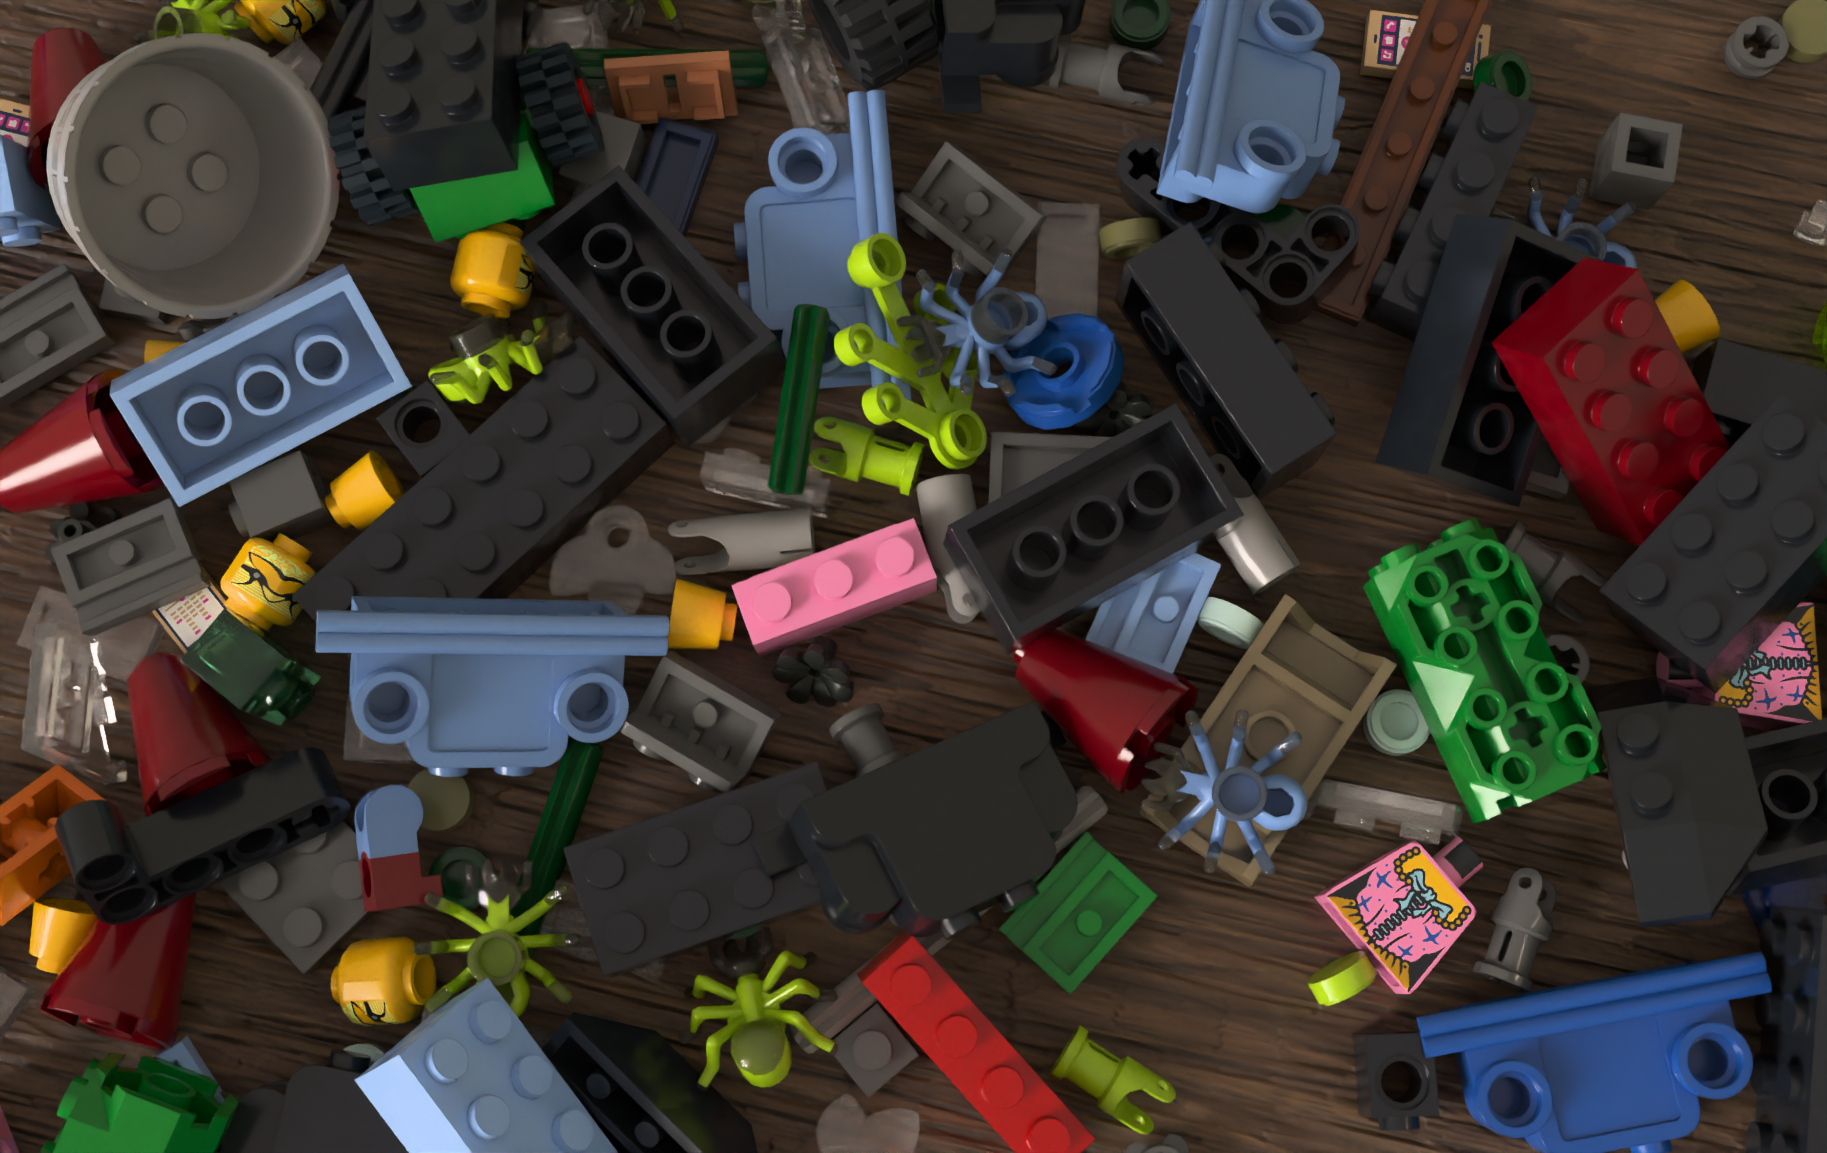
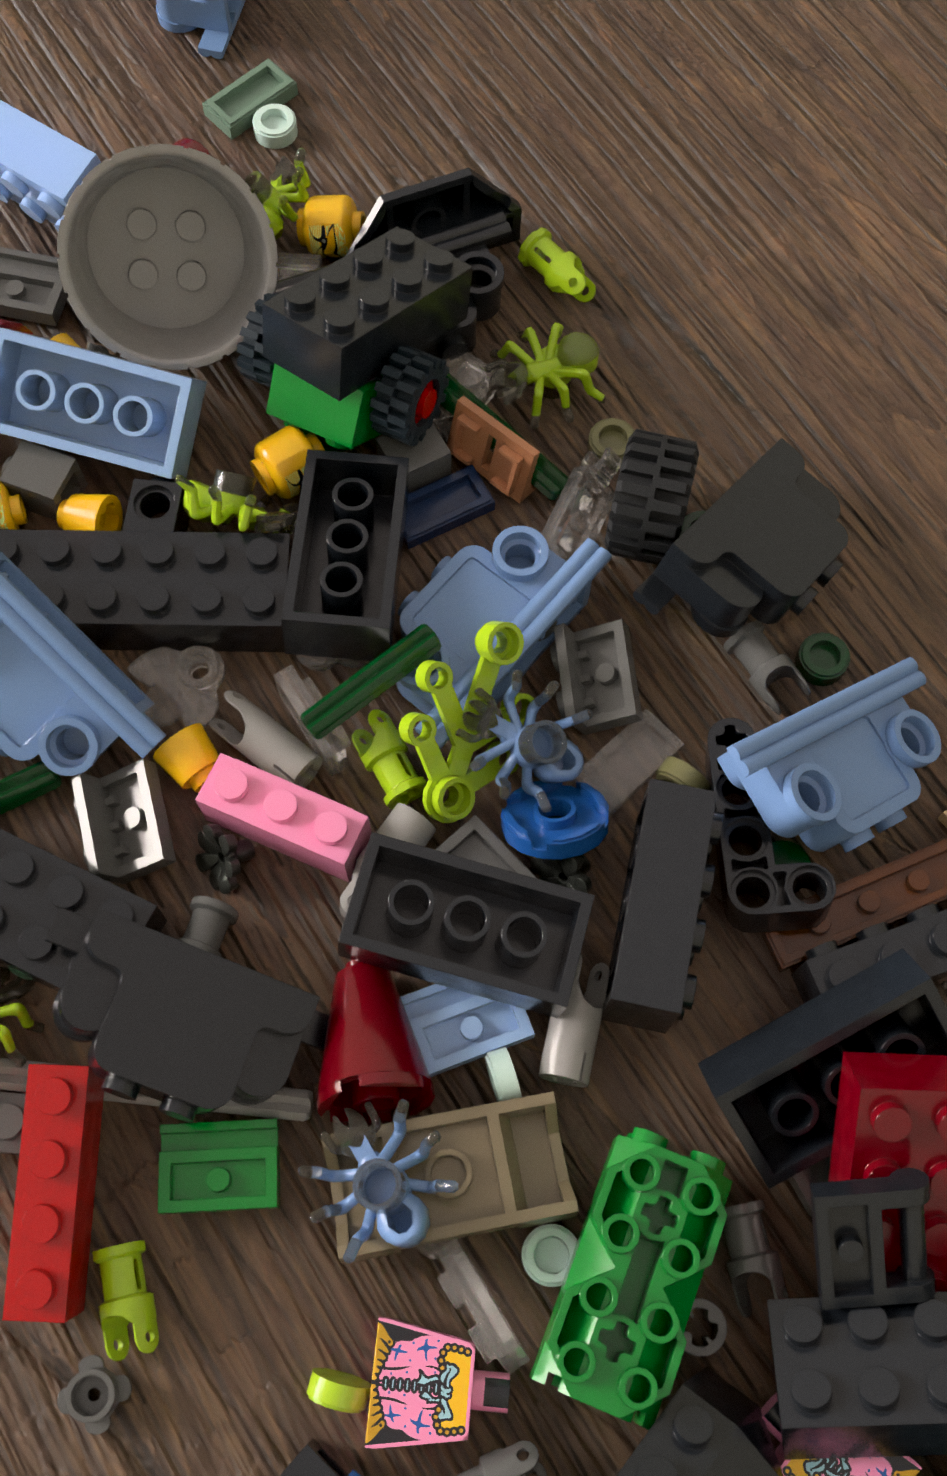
camera: 40 degrees right, 10 degrees down
(1629, 480) = (852, 1241): none -> black plate

